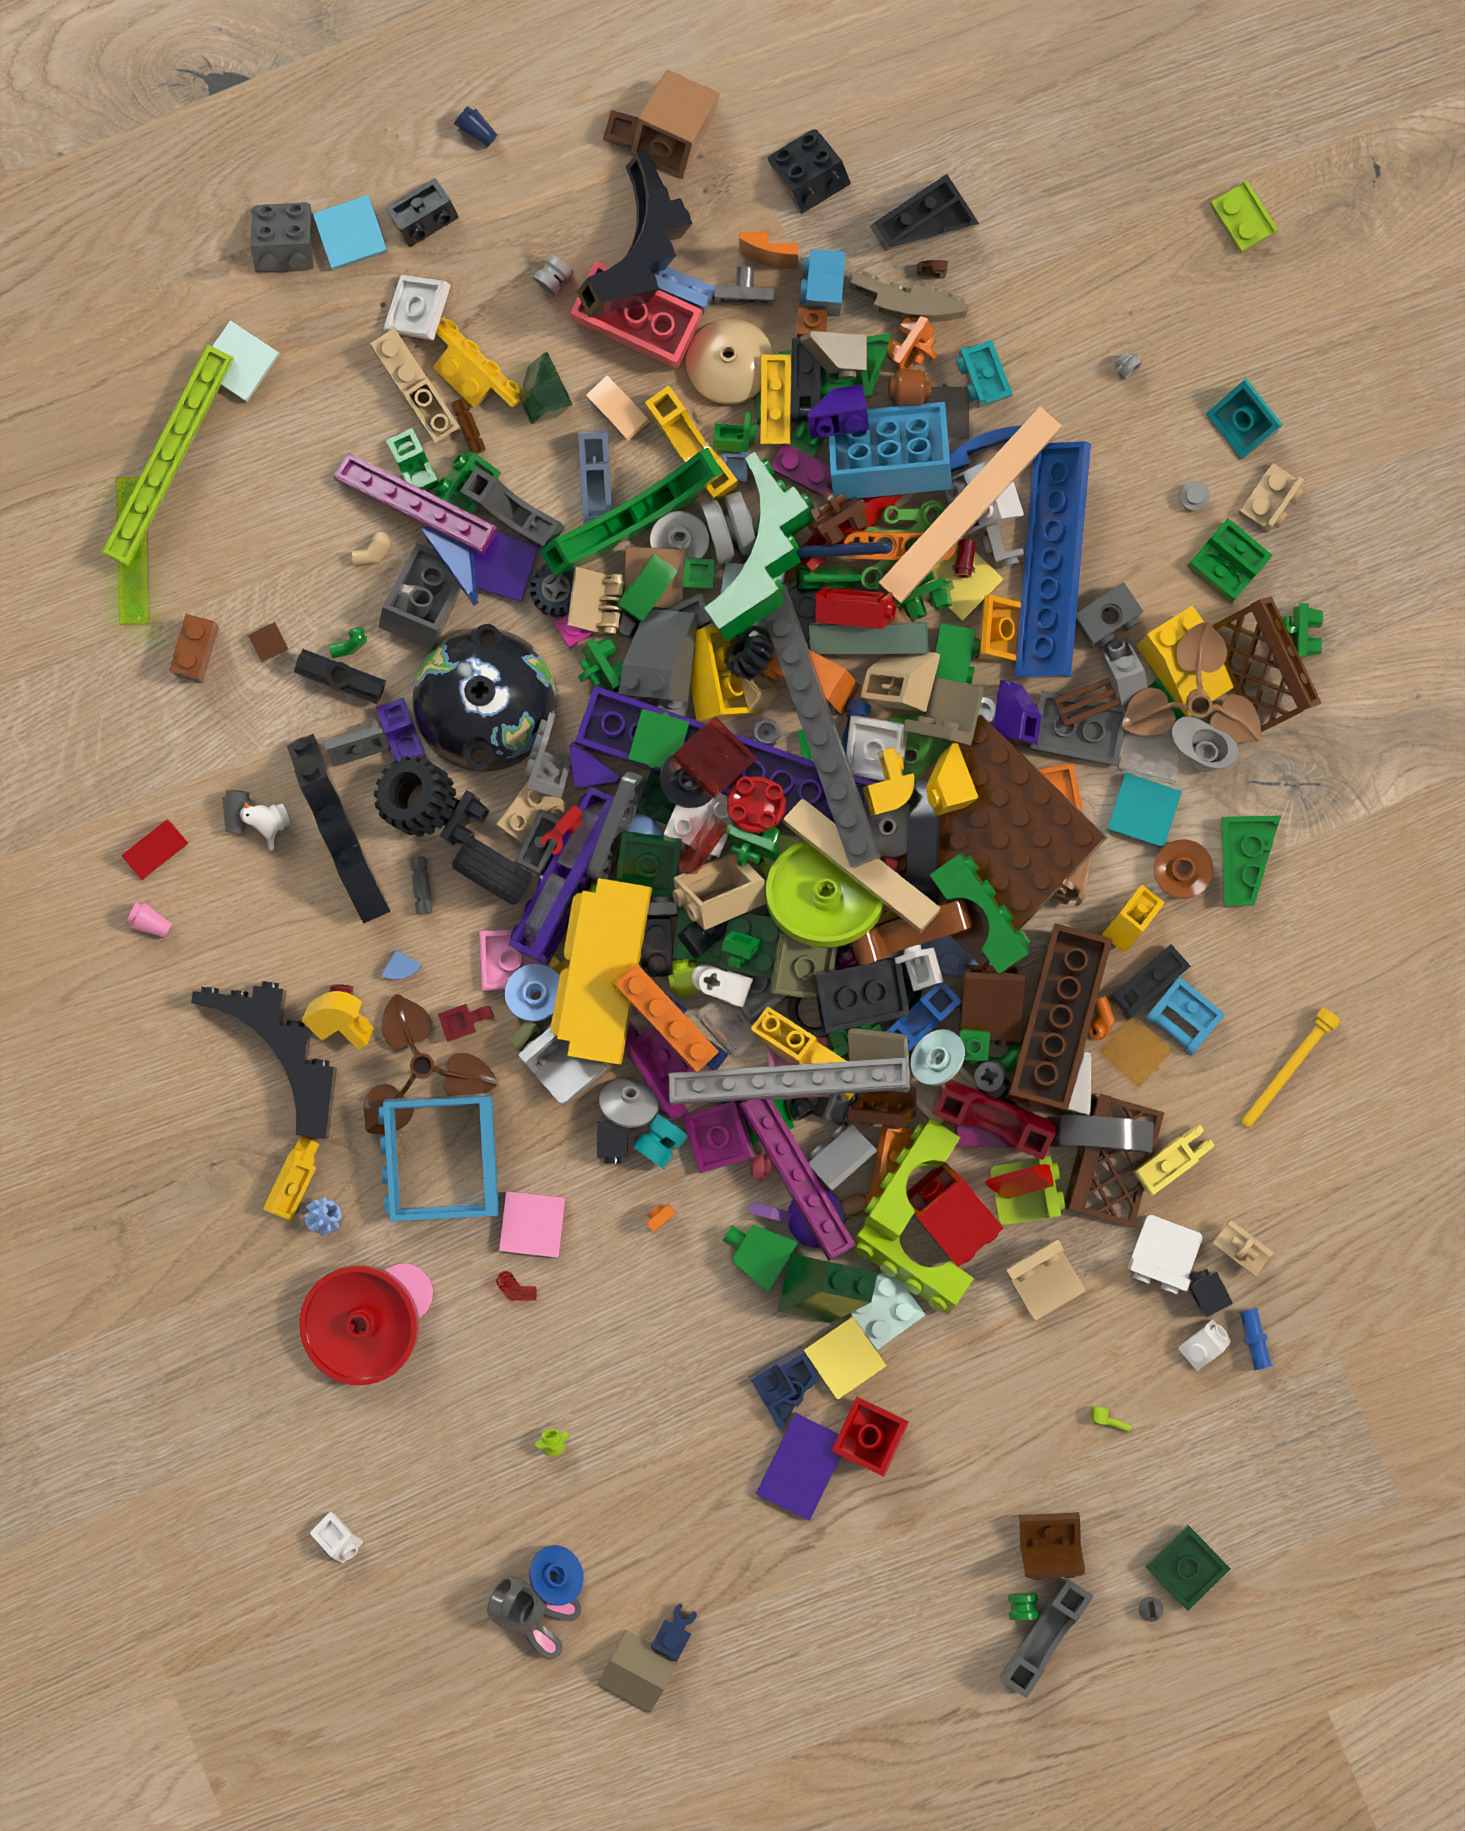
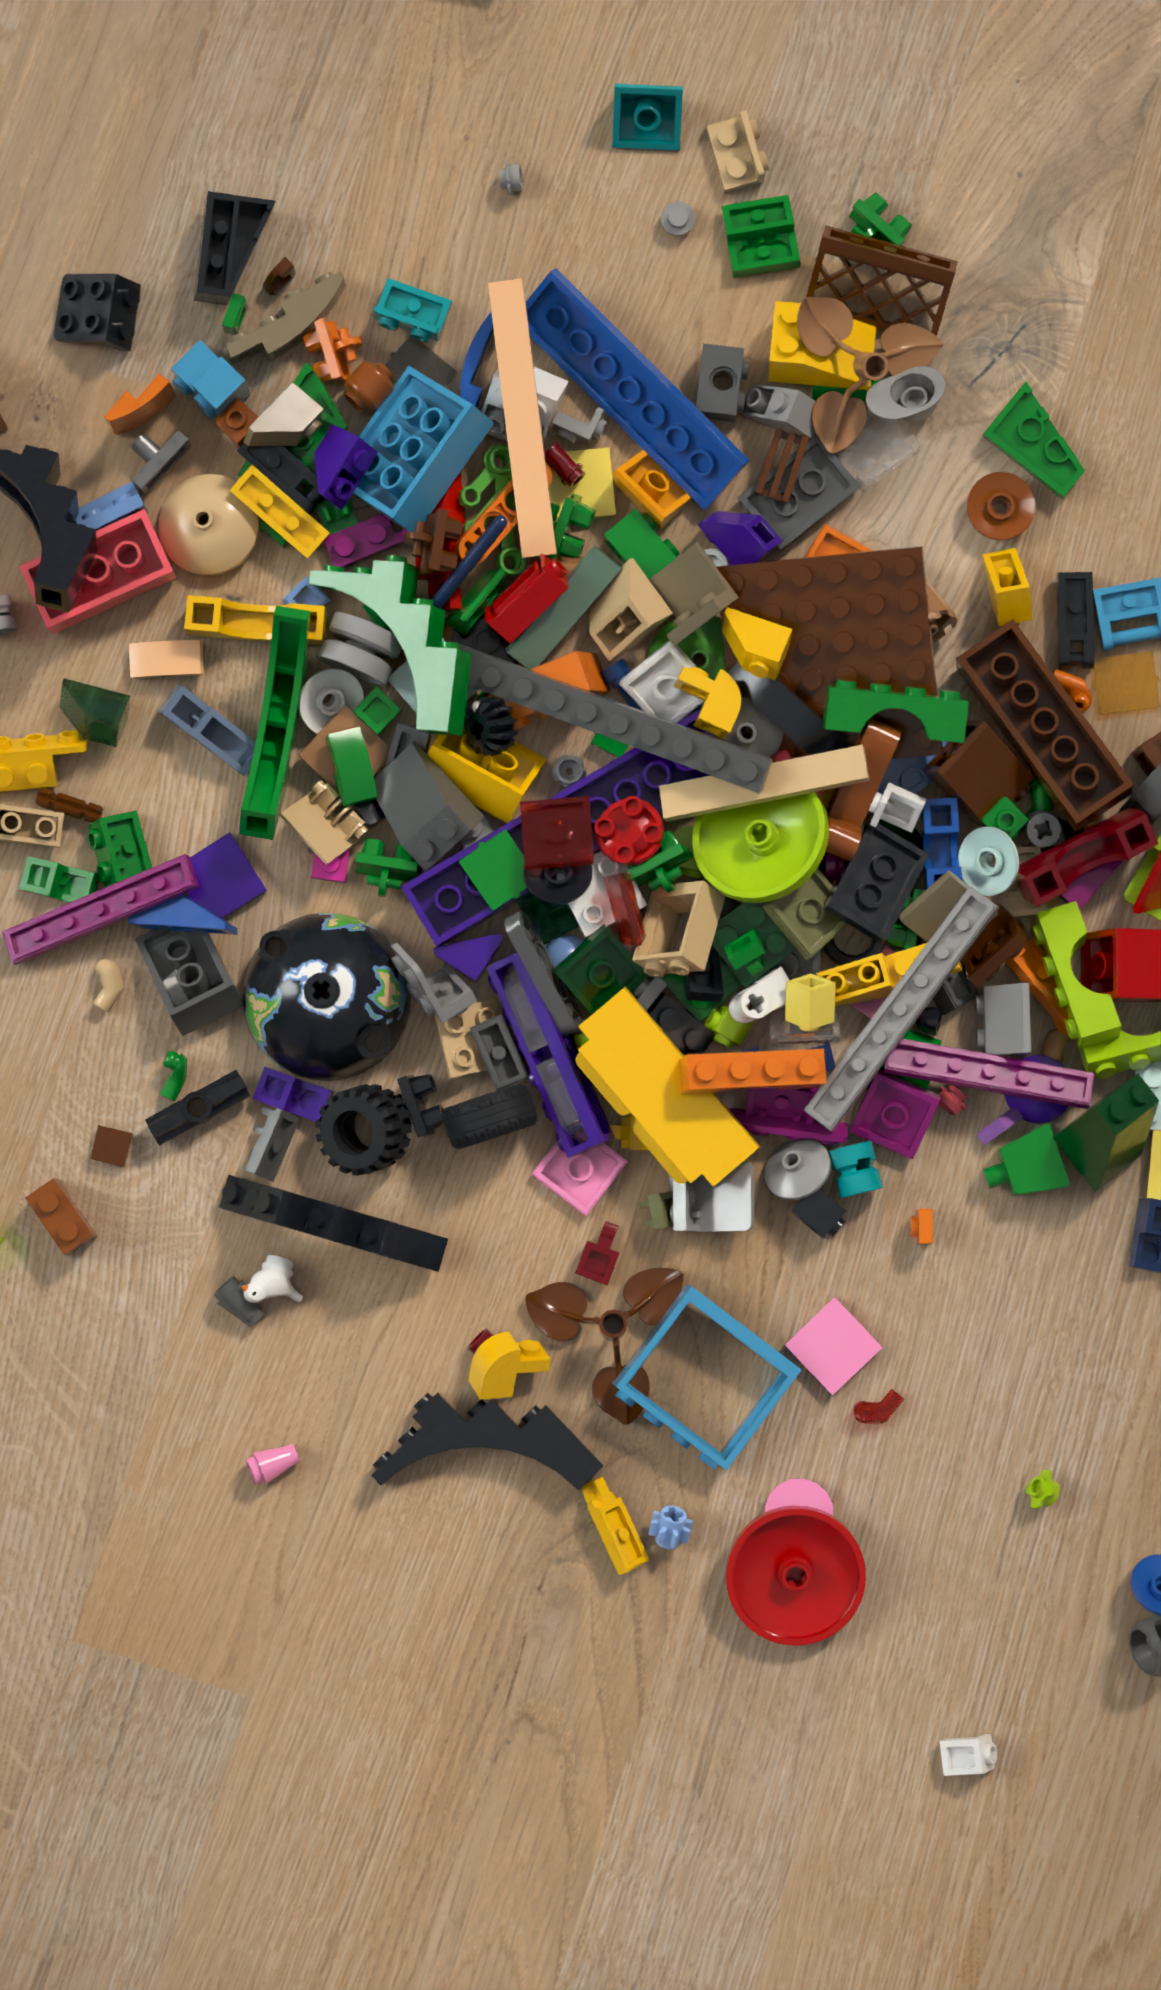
camera: 50 degrees left, 0 degrees up
(155, 849) = (212, 1403): red slope -> none
(400, 967) = (504, 1271): medium blue tile -> none
(421, 885) = (446, 1192): dark grey axle -> none
(510, 509) = (179, 830): dark grey arch -> none
(524, 983) = (613, 1167): light blue dish -> none
(547, 600) = (282, 867): black wheel -> none
(569, 823) = (506, 1011): red plate -> none
(734, 437) = (281, 577): green bracket -> none
(743, 1017) = (810, 1002): none -> light yellow brick
(759, 692) = (528, 747): tan slope -> none
(882, 260) = (234, 314): none -> green tile
(1081, 1094) = (1130, 764): white slope -> none
(1144, 810) = (919, 497): teal tile -> none

